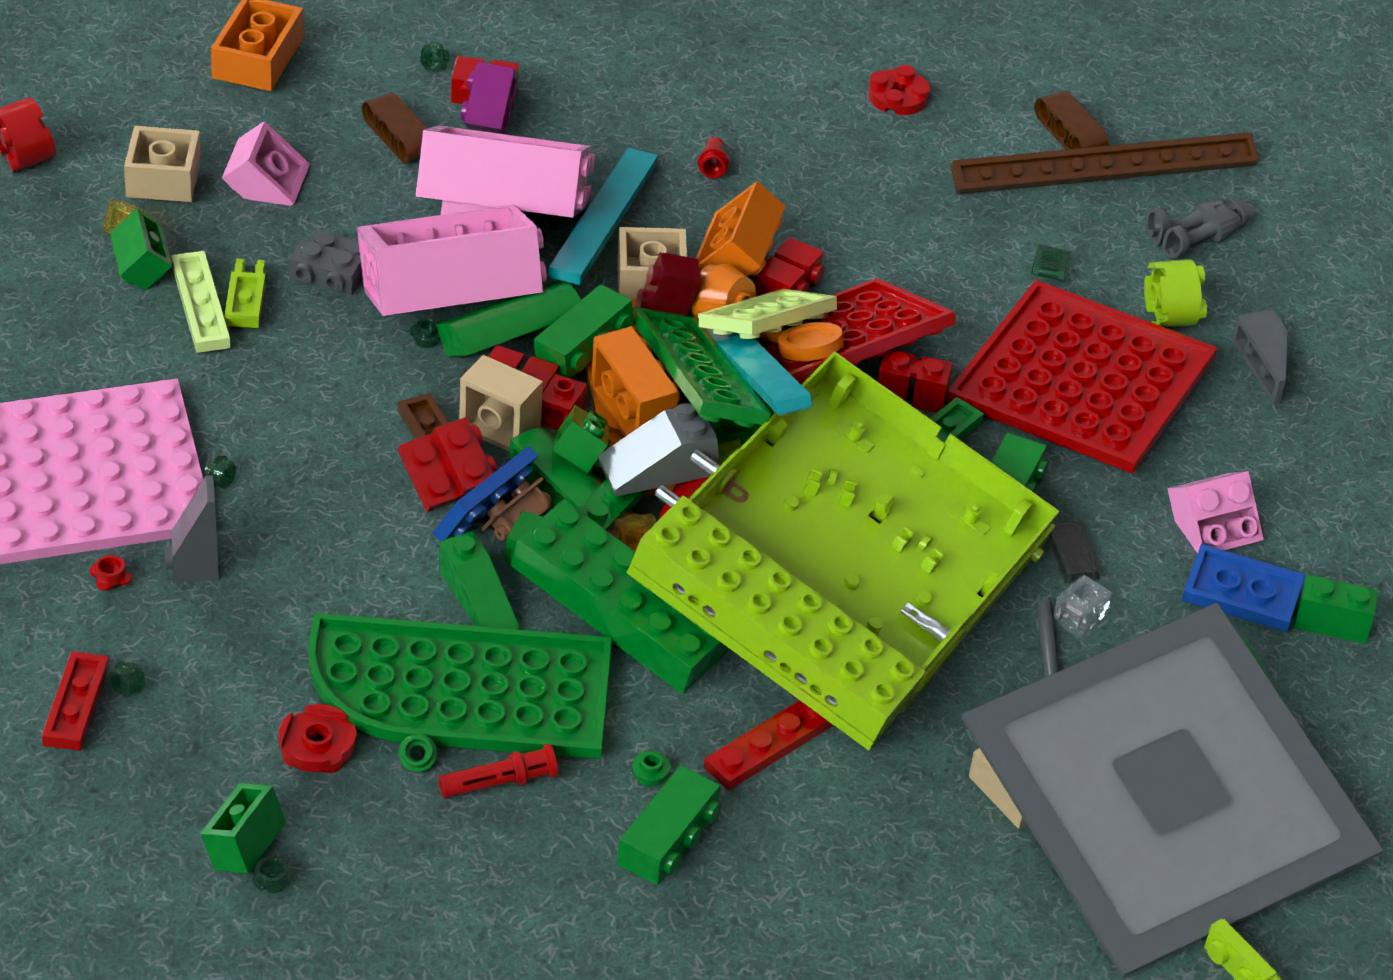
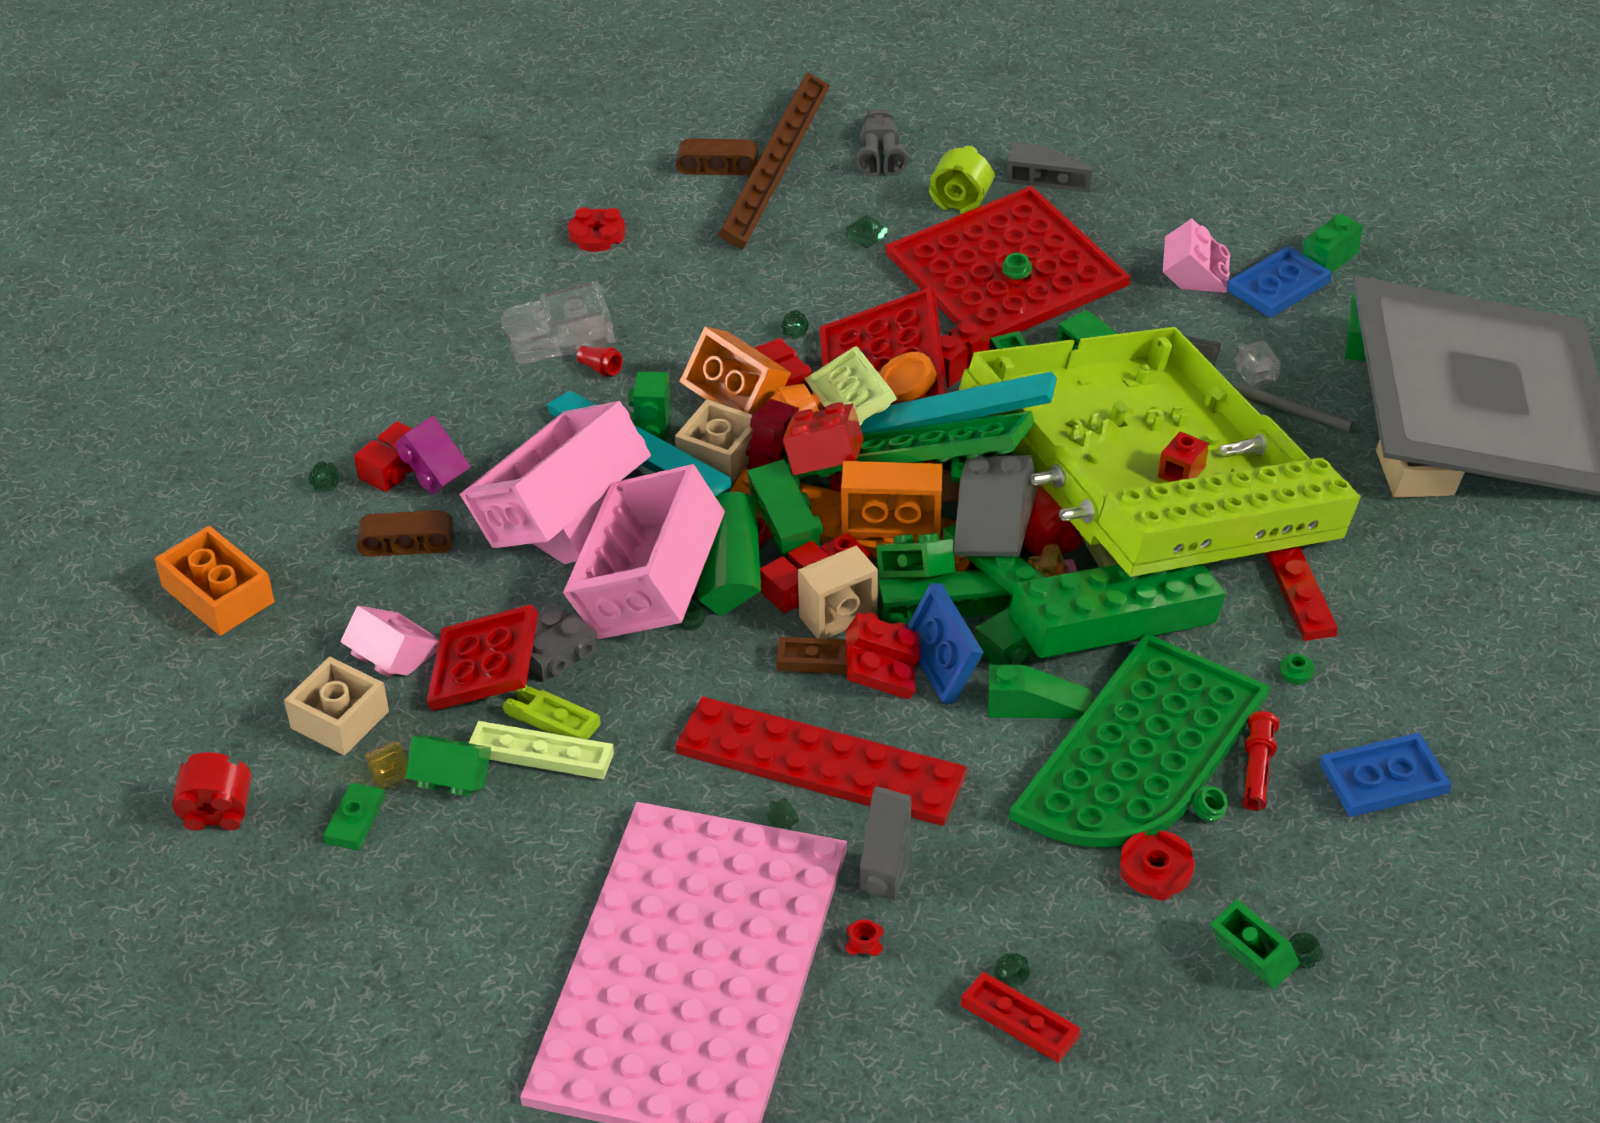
camera: 55 degrees left, 0 degrees up
(63, 228) = (354, 816): none -> green plate
(273, 223) = (483, 657): none -> red plate
(306, 480) = (818, 758): none -> red plate
(543, 873) = (1384, 774): none -> blue plate
(657, 199) = (651, 403): none -> green brick
(663, 307) = (823, 438): none -> red brick
(669, 825) = (1371, 679): green brick -> none
(736, 112) = (558, 323): none -> clear brick
(838, 567) = (1183, 458): none -> red brick
(864, 266) = (794, 324): none -> clear green plate
(1069, 374) = (1016, 266): none -> green plate

